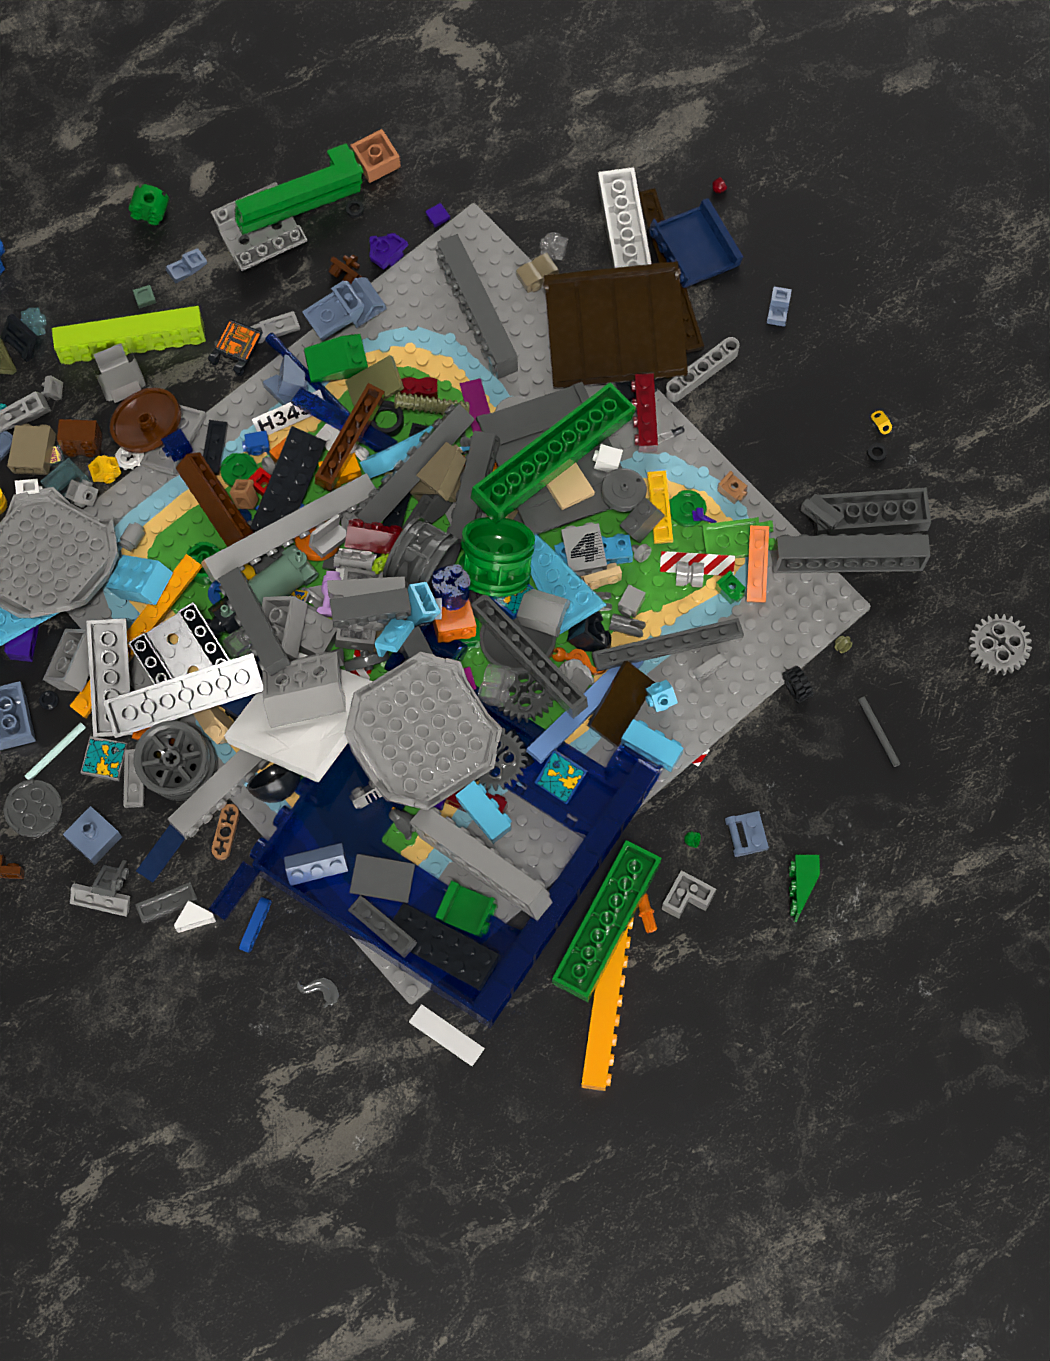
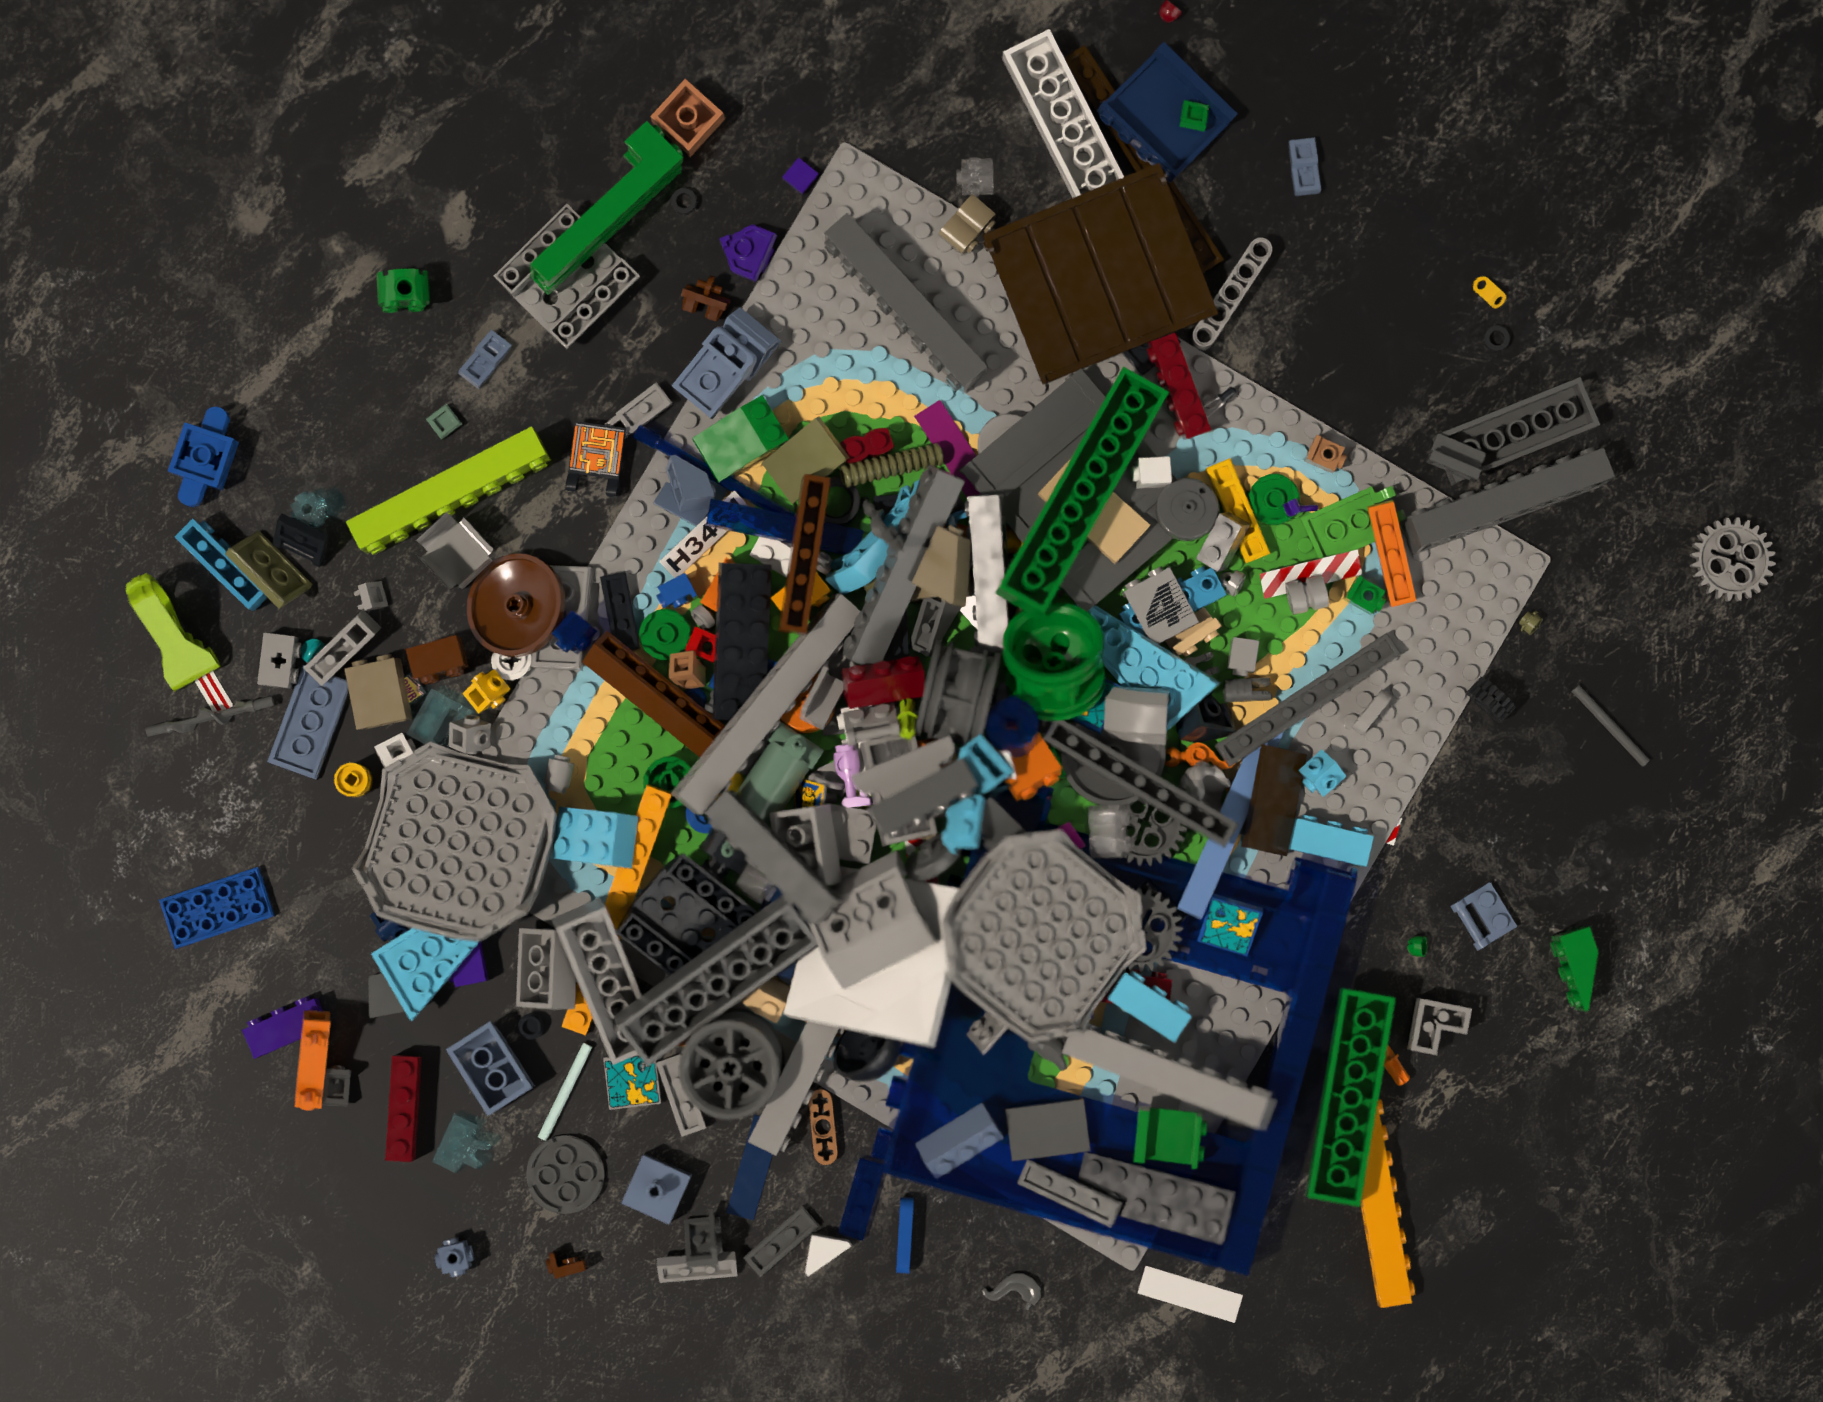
camera: 20 degrees left, 15 degrees up
(409, 435) = (880, 529): none -> dark grey piece
(713, 251) = (1194, 115): none -> green tile

